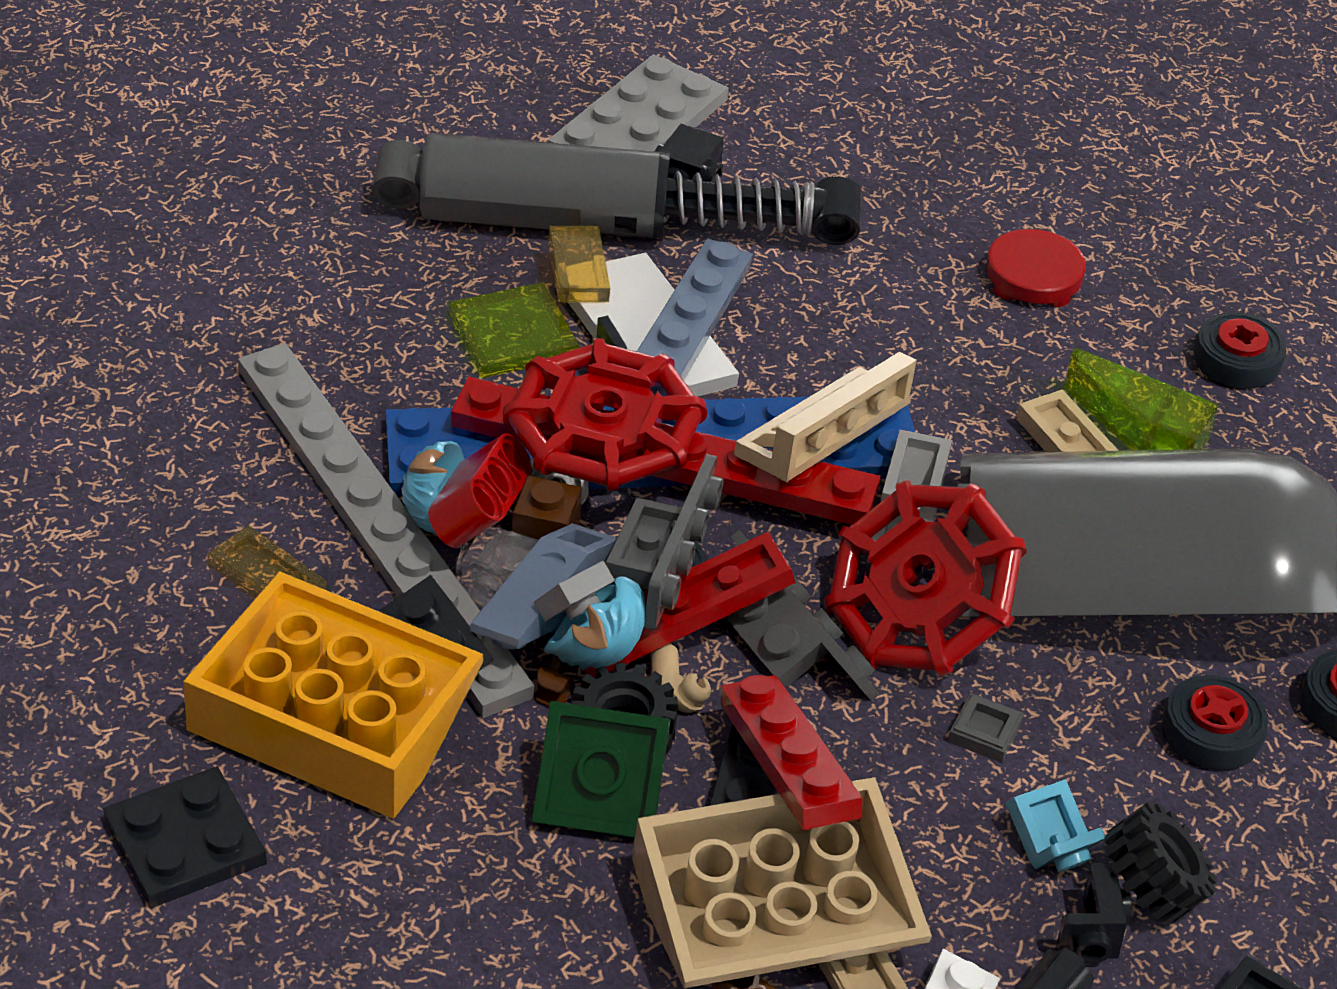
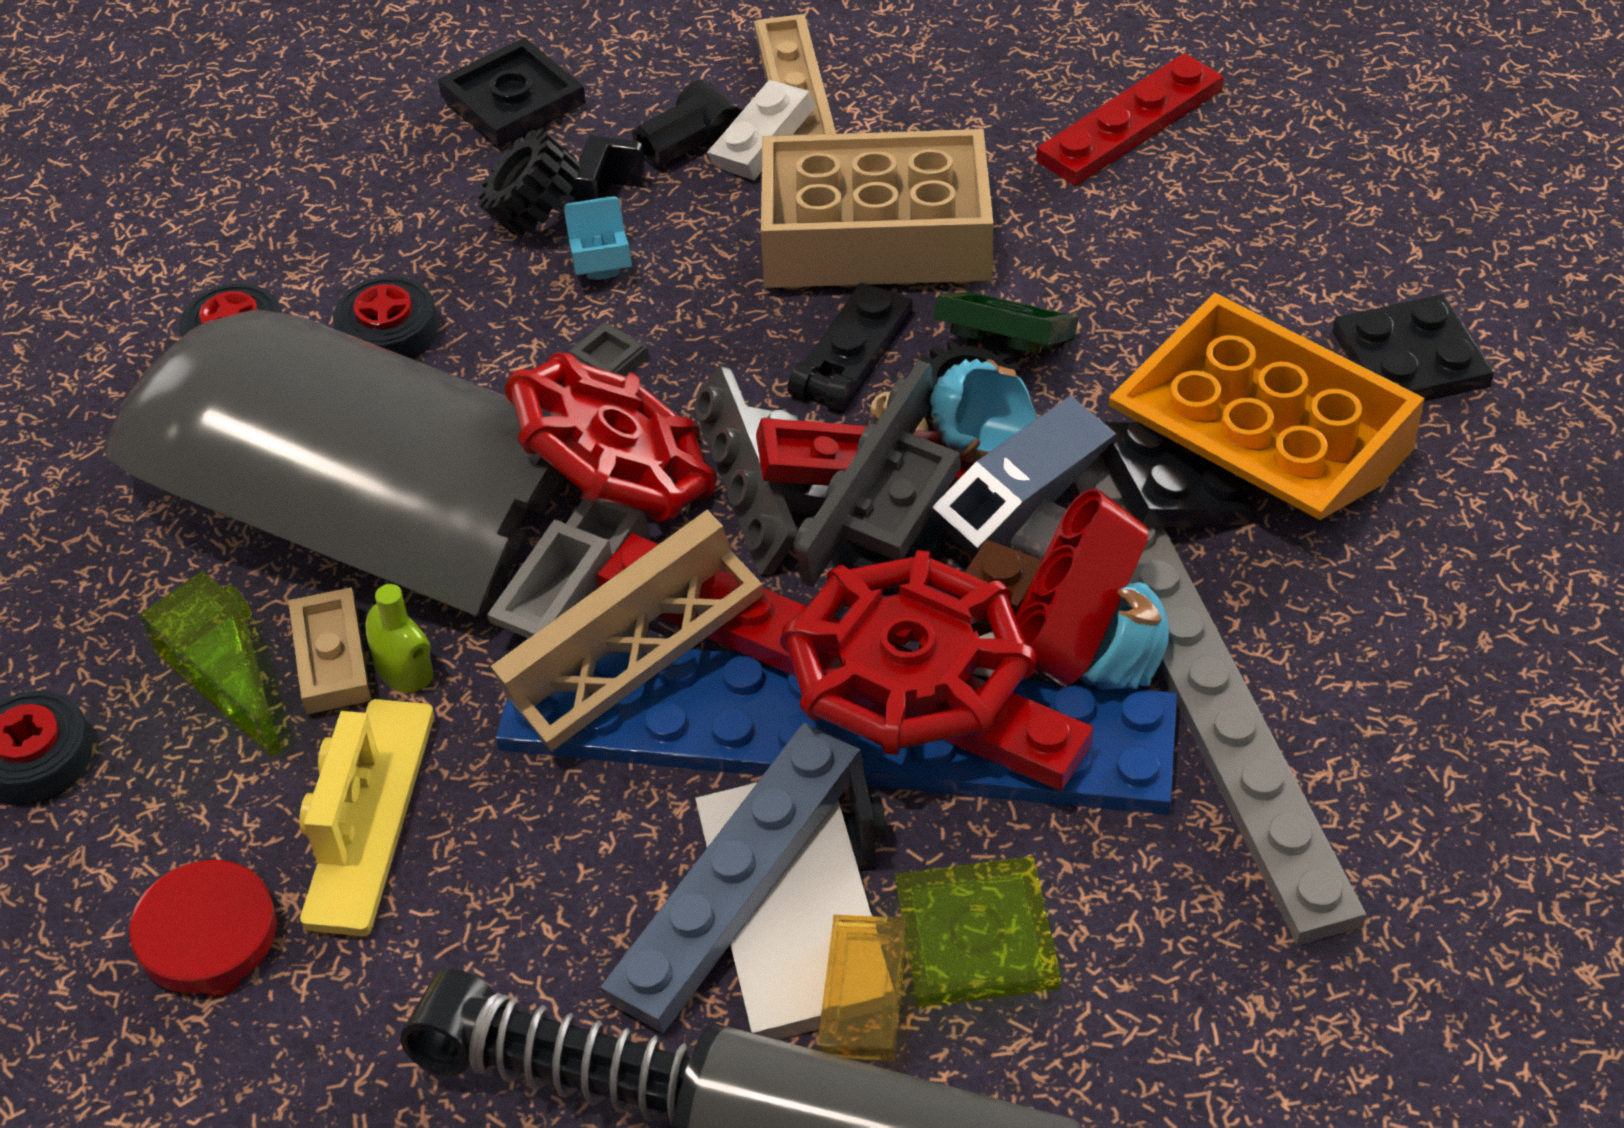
camera: 160 degrees left, 5 degrees up
(254, 561) = (1329, 613): clear yellow tile -> none
(575, 593) = (1007, 398): light grey plate -> none
(791, 752) = (830, 271): red plate -> none
(975, 339) = (360, 811): none -> light yellow bracket
(1009, 423) = (397, 643): none -> lime piece

